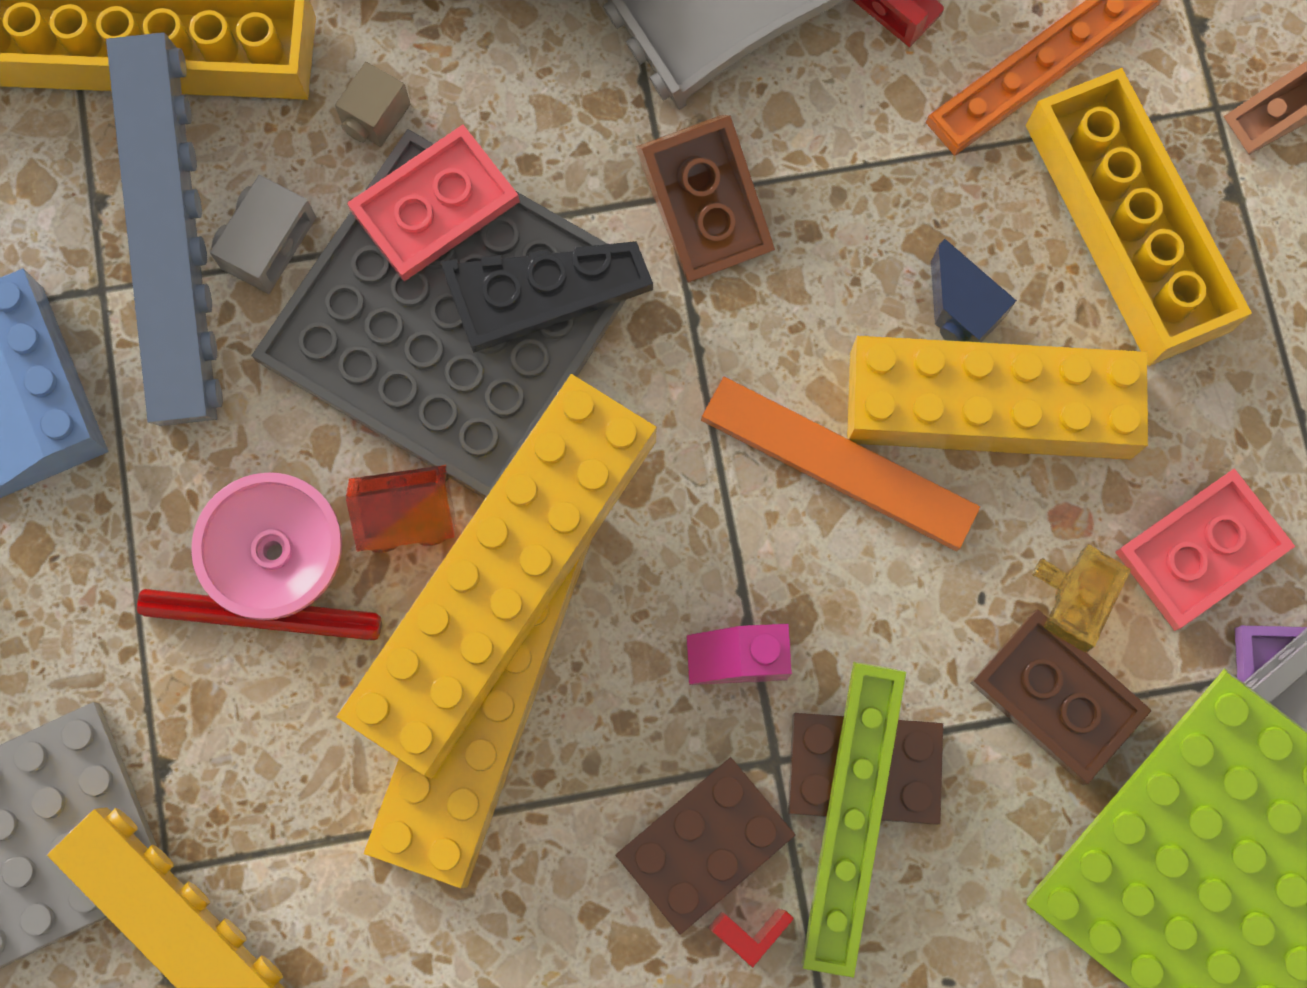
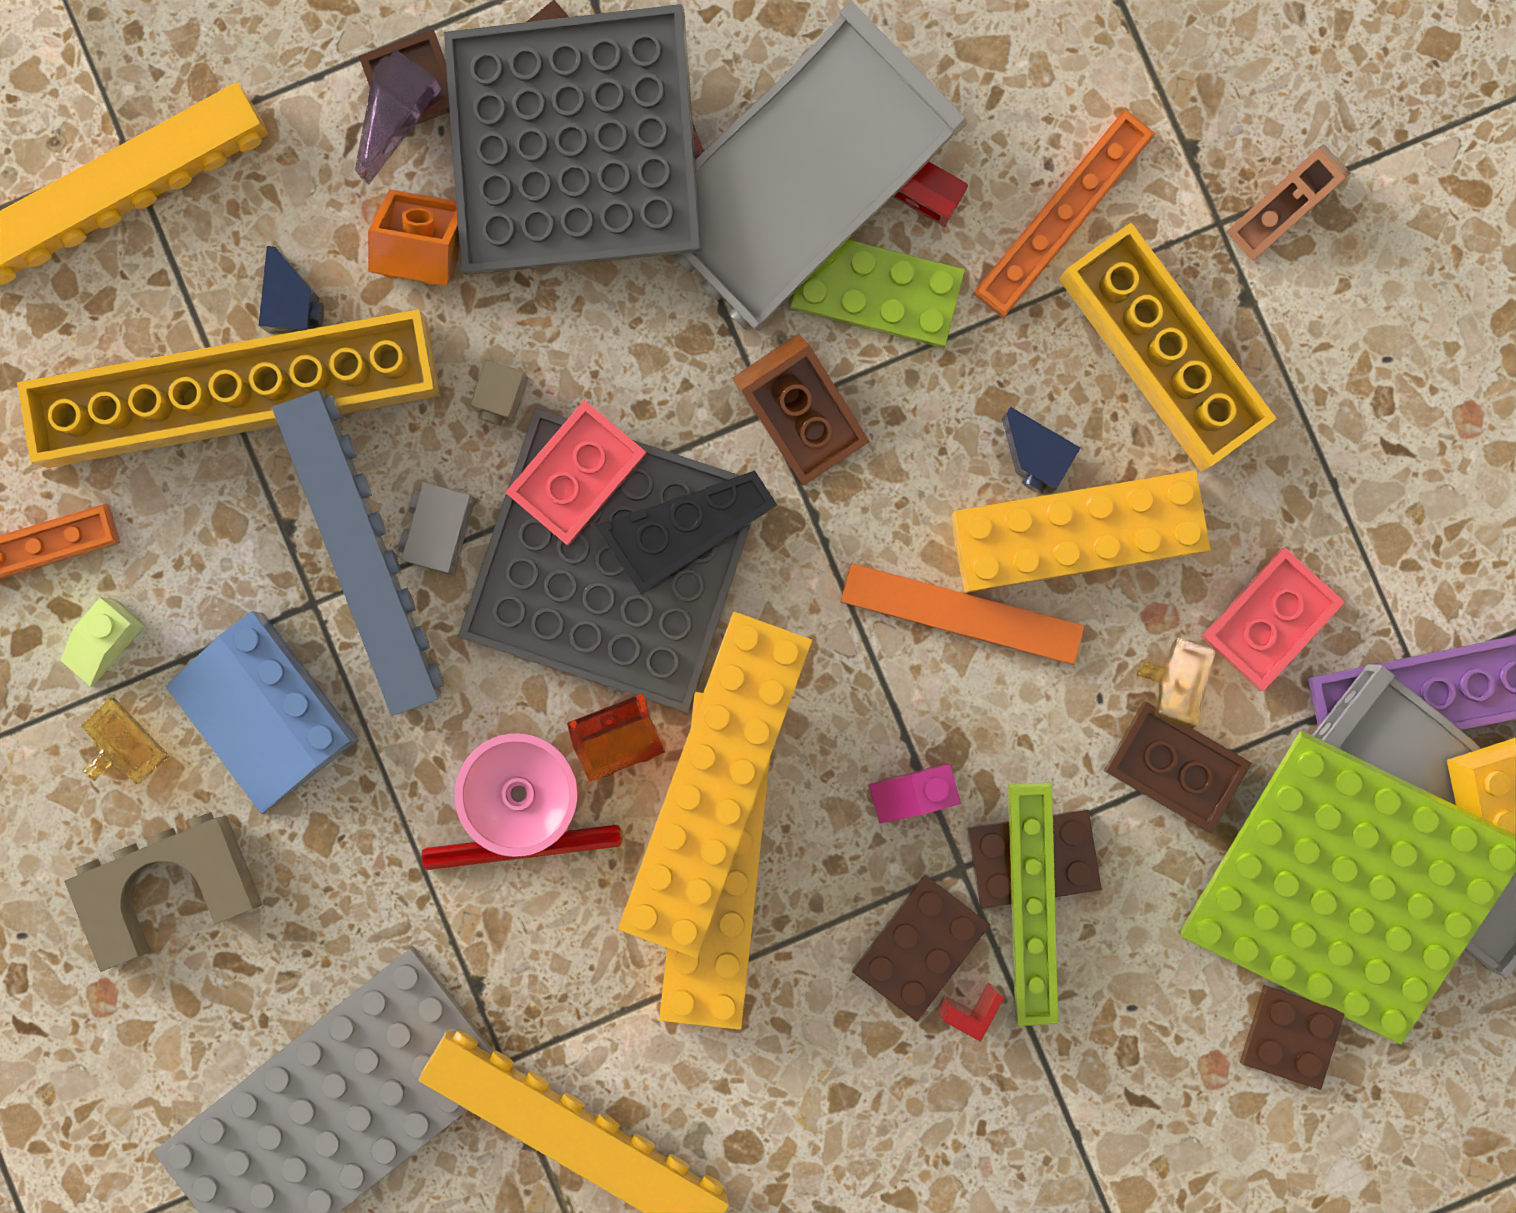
camera: 10 degrees left, 10 degrees up
(824, 96) = (883, 293): none -> lime plate

